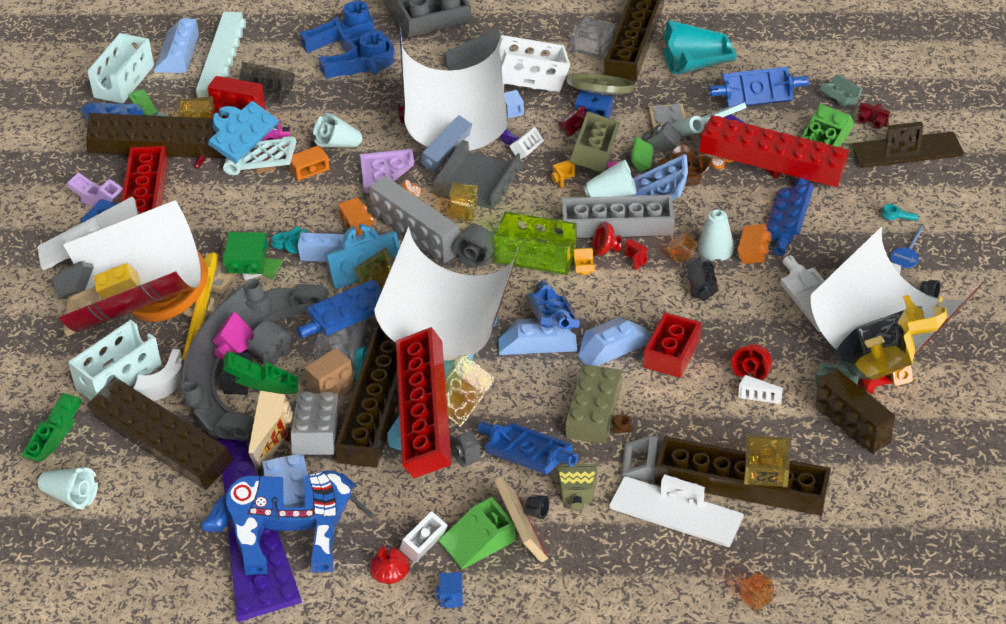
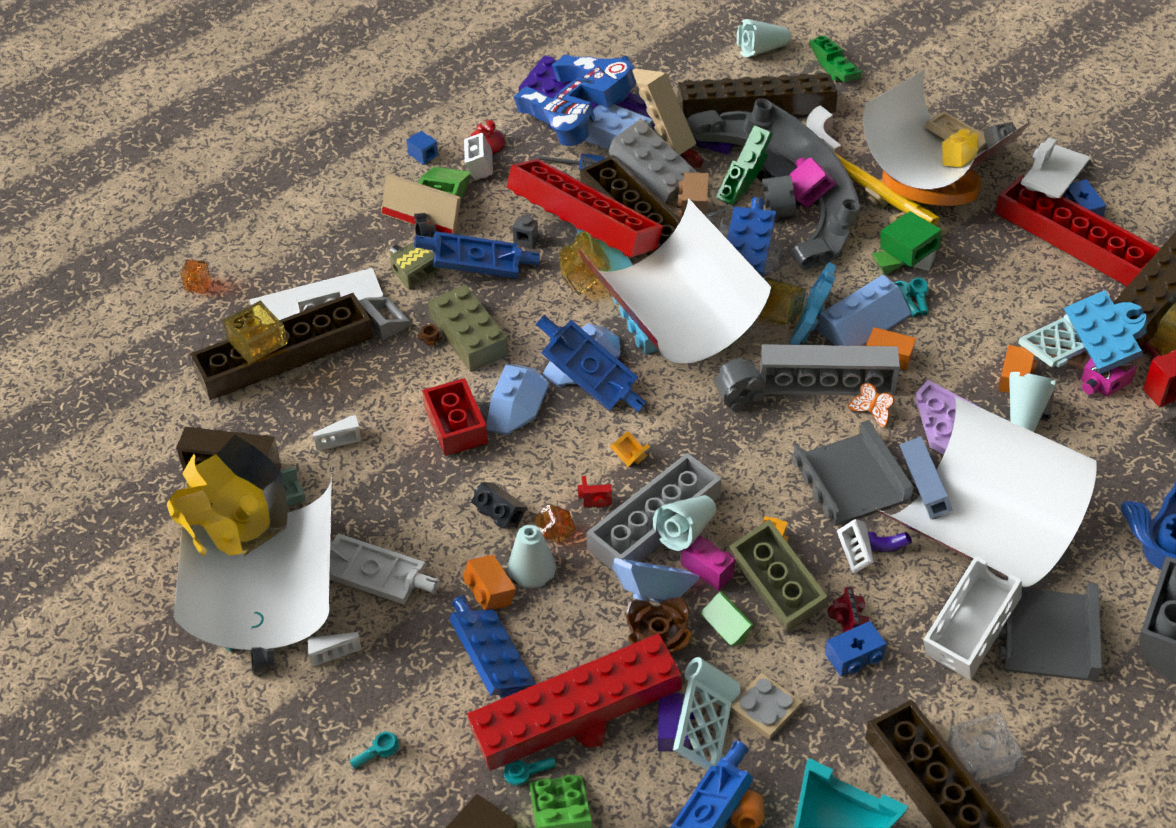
camera: 135 degrees right, 5 degrees up
(91, 192) = (1129, 216): lavender arch -> none
(129, 358) = (851, 106): light aqua piece -> none
(462, 201) = (815, 420): clear yellow brick -> none
(514, 104) = (939, 584): light blue brick -> none
(549, 256) = (690, 422): clear neon green piece -> none
(600, 83) = (894, 655): olive dish -> none
(605, 239) = (633, 481): red hair -> none
(662, 137) = (731, 653): dark grey slope -> none
(752, 359) = (366, 450): red cylinder -> none
(905, 256) = (324, 698): blue piece -> none

